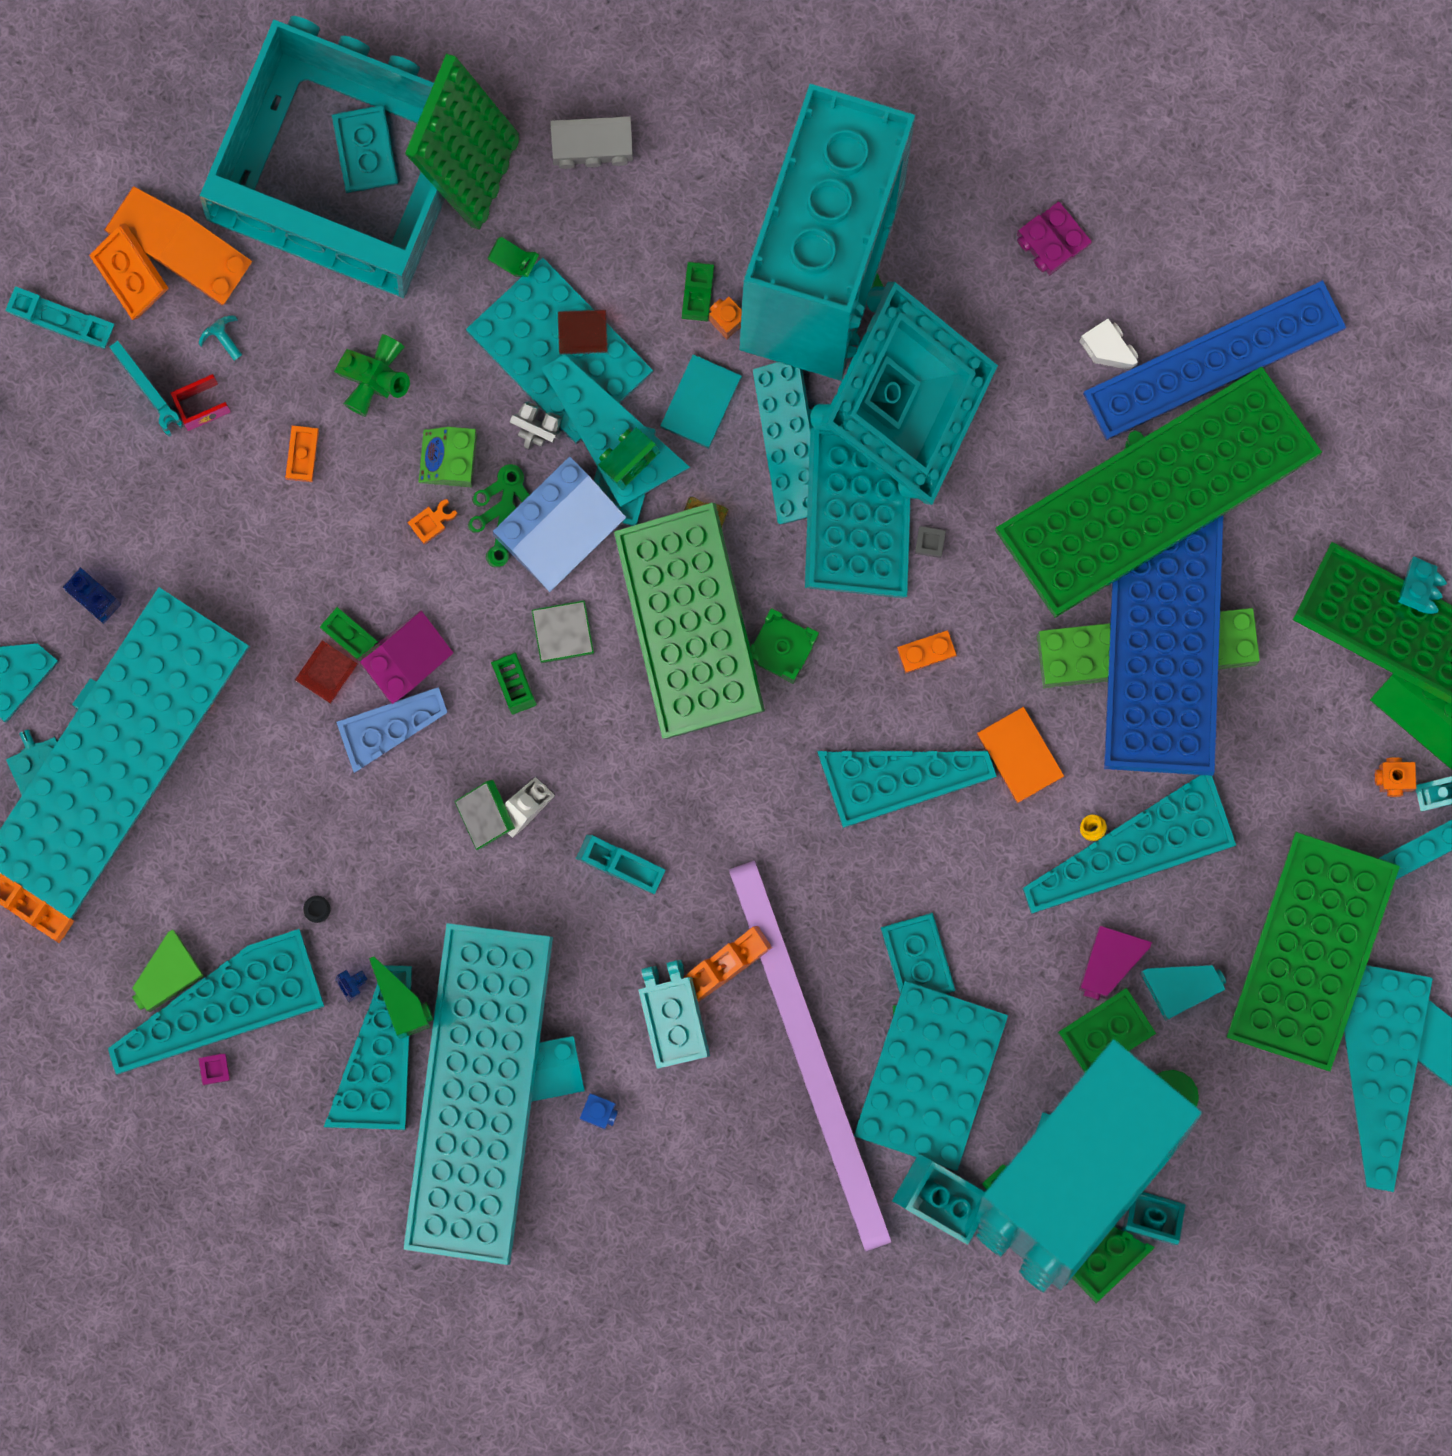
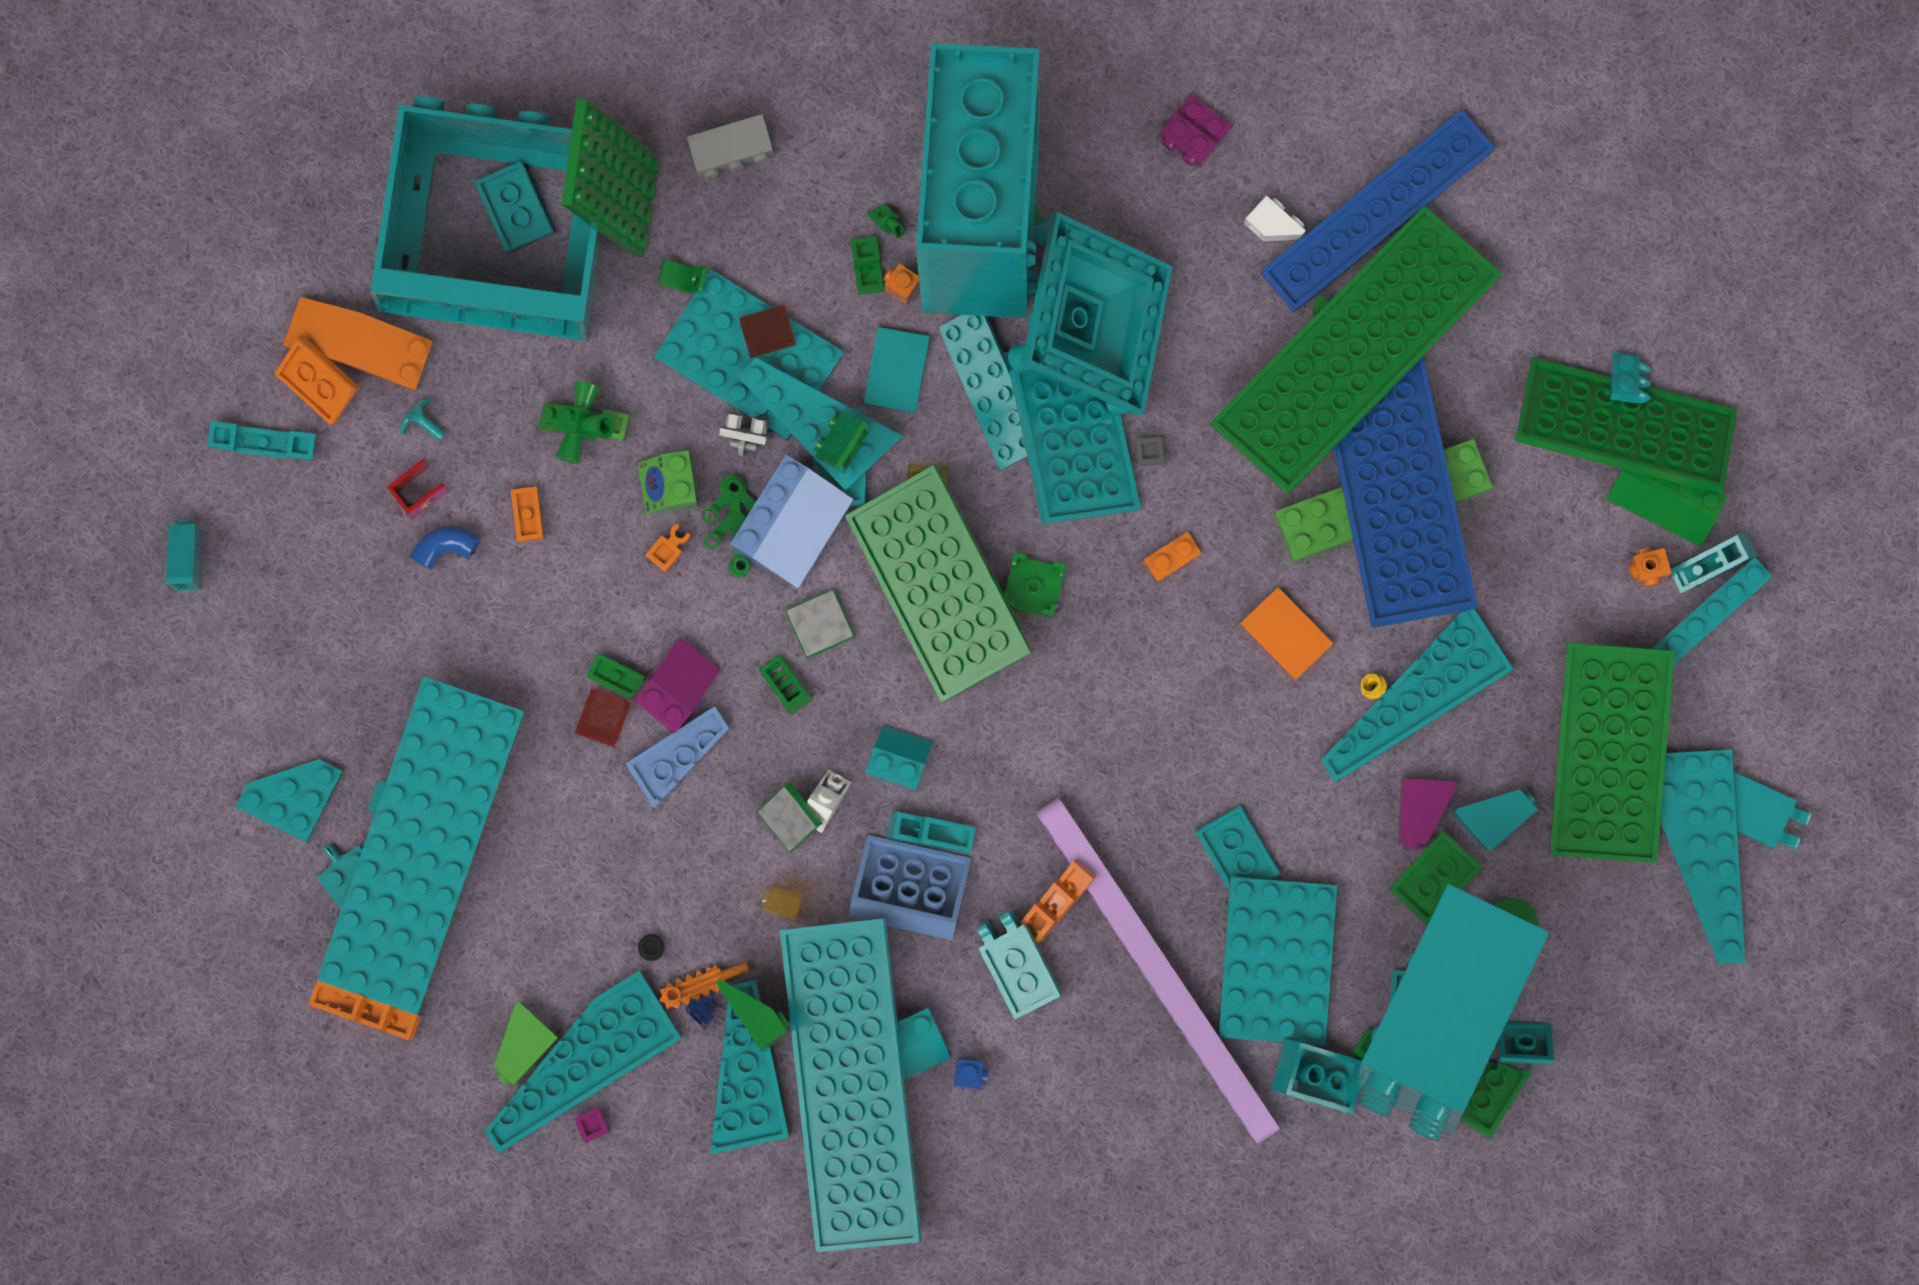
camera: 10 degrees left, 0 degrees up
(91, 595) = (359, 700): clear blue hips -> none
(166, 414) = (363, 488): teal tile -> none
(214, 459) = (444, 540): none -> blue cylinder
(357, 957) = (699, 985): none -> orange piece
(416, 387) = (621, 424): none -> bright green plate
(456, 897) = (782, 903): none -> clear yellow brick
(586, 913) = (910, 887): none -> medium blue slope
(607, 783) = (898, 758): none -> teal slope
(727, 252) = (886, 220): none -> green piece
(887, 781) = (1163, 691): teal wing -> none

